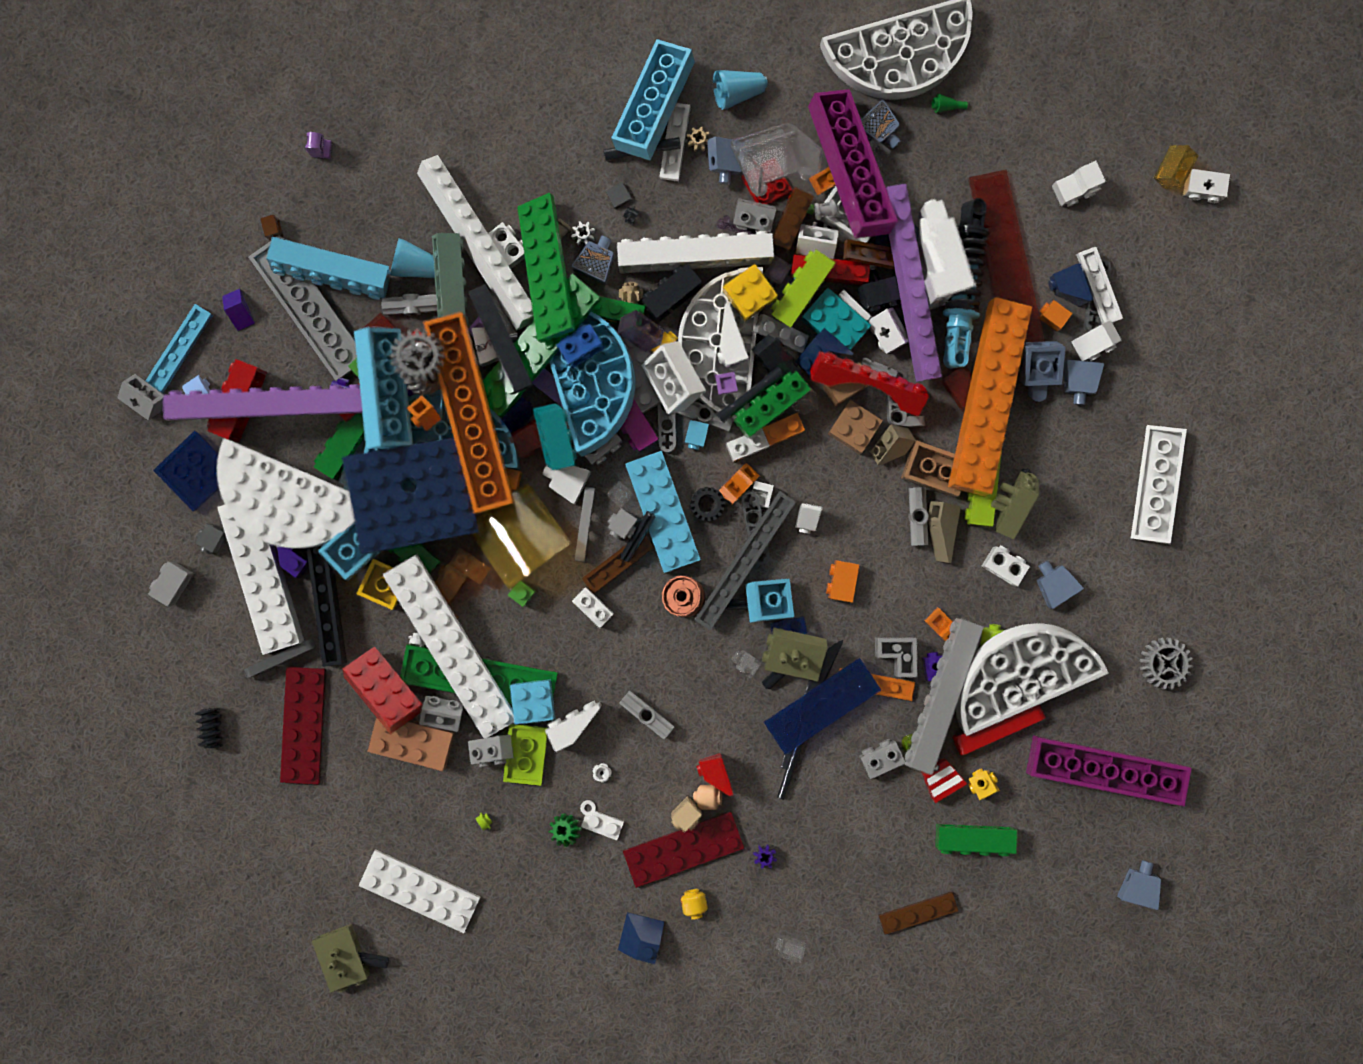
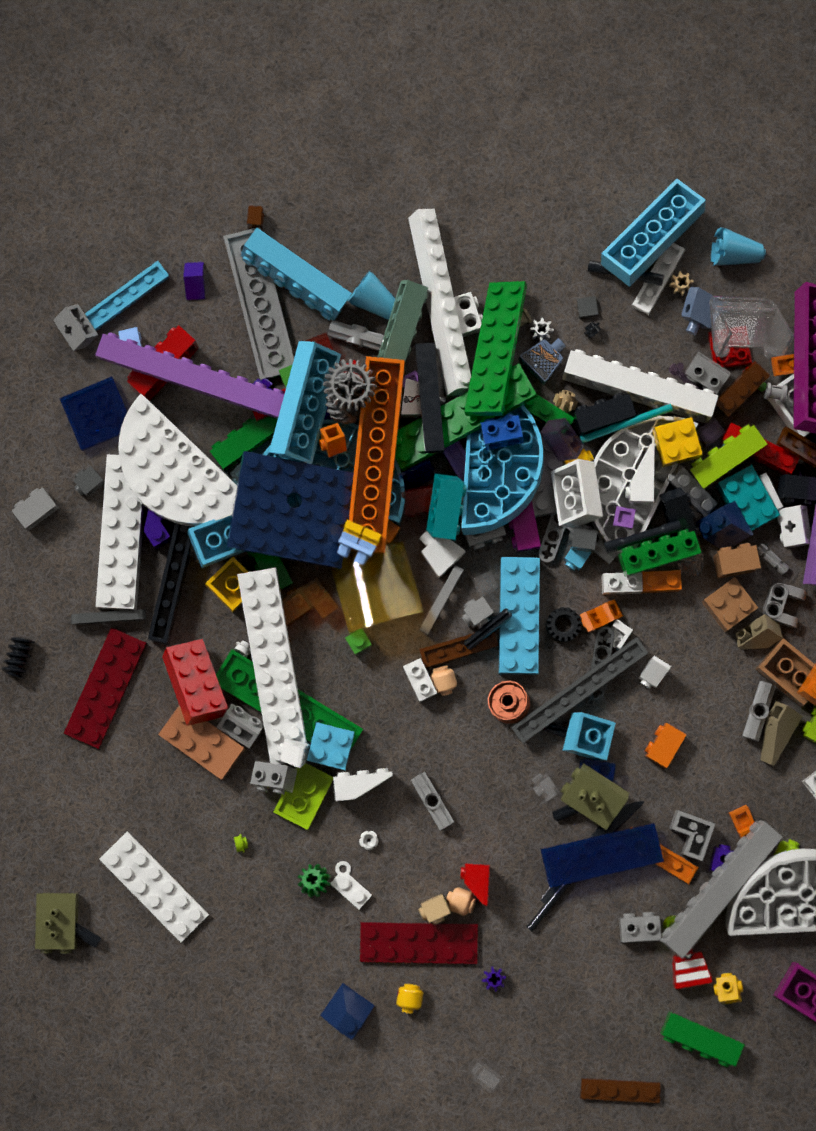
camera: 20 degrees right, 5 degrees down
(318, 146) = (326, 159): medium lavender leg -> none
(483, 499) = (350, 538): none -> light blue hips
(500, 721) = (293, 752): none -> white slope
(615, 598) = (443, 680): none -> light nougat head
(695, 292) = (626, 423): none -> teal piece
(695, 418) = (583, 539): none -> dark grey brick
(817, 238) = (758, 415): white brick -> none
(834, 370) = (729, 543): red arch -> none
(994, 732) = (761, 942): red beam -> none

